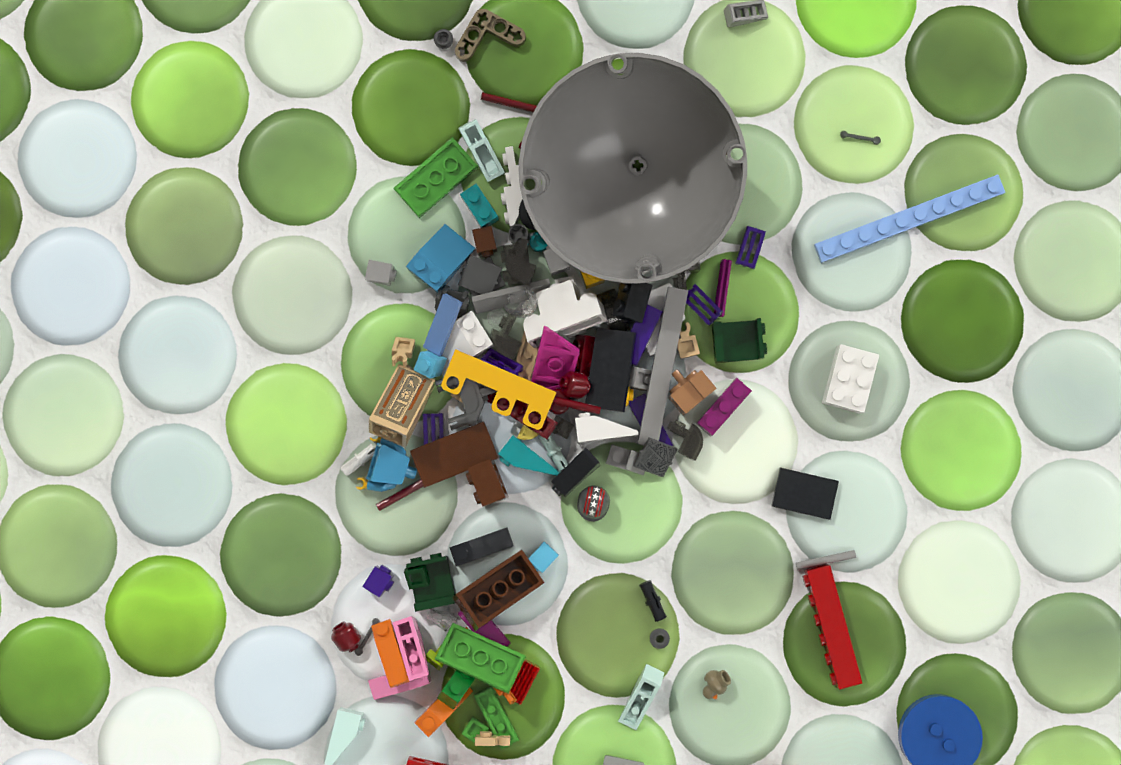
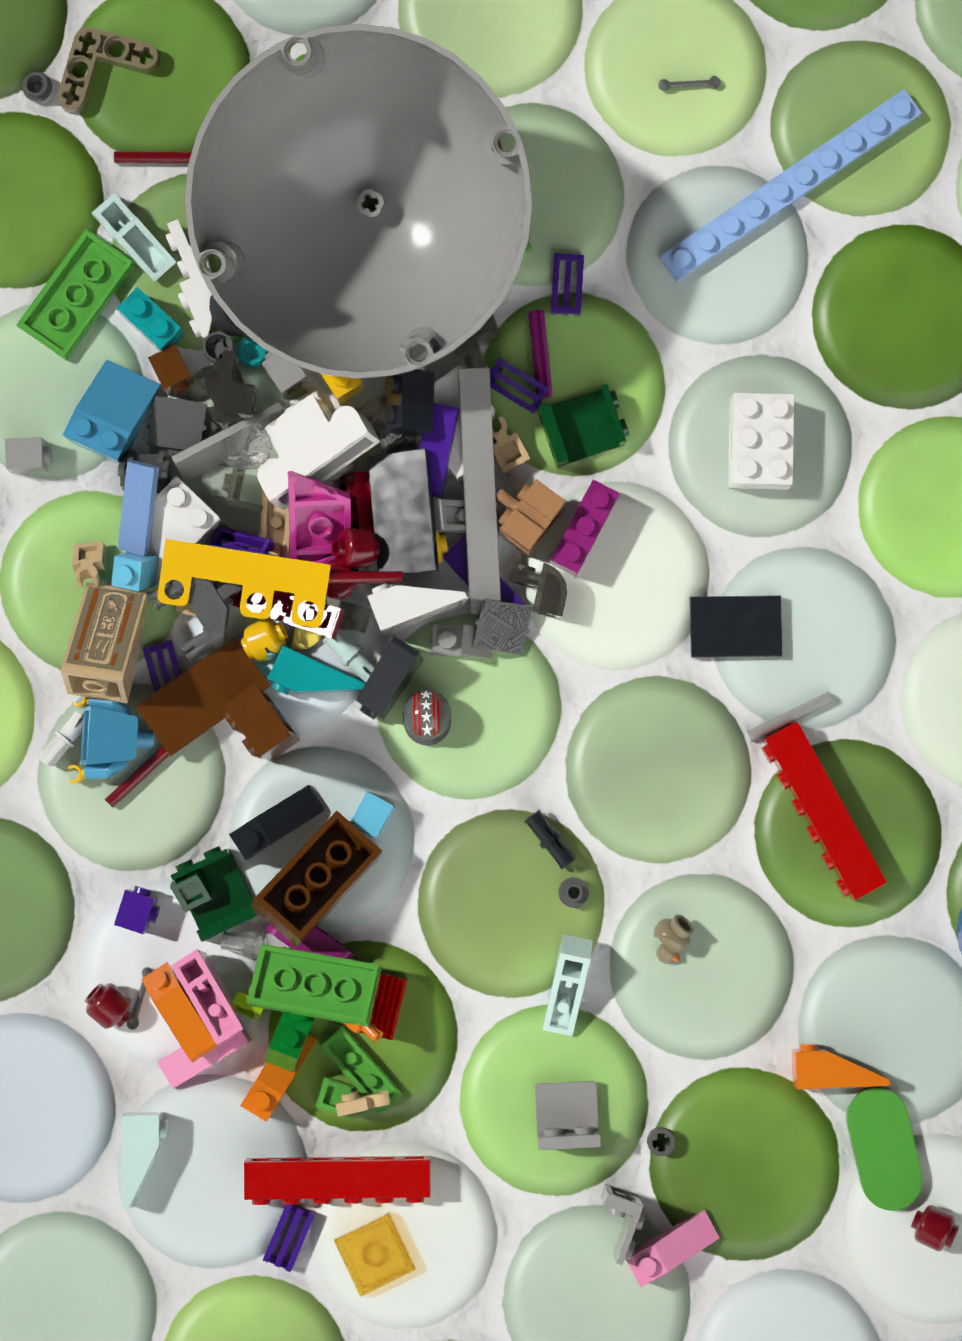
camera: 20 degrees left, 0 degrees up
(502, 428) = (264, 639): none -> yellow head

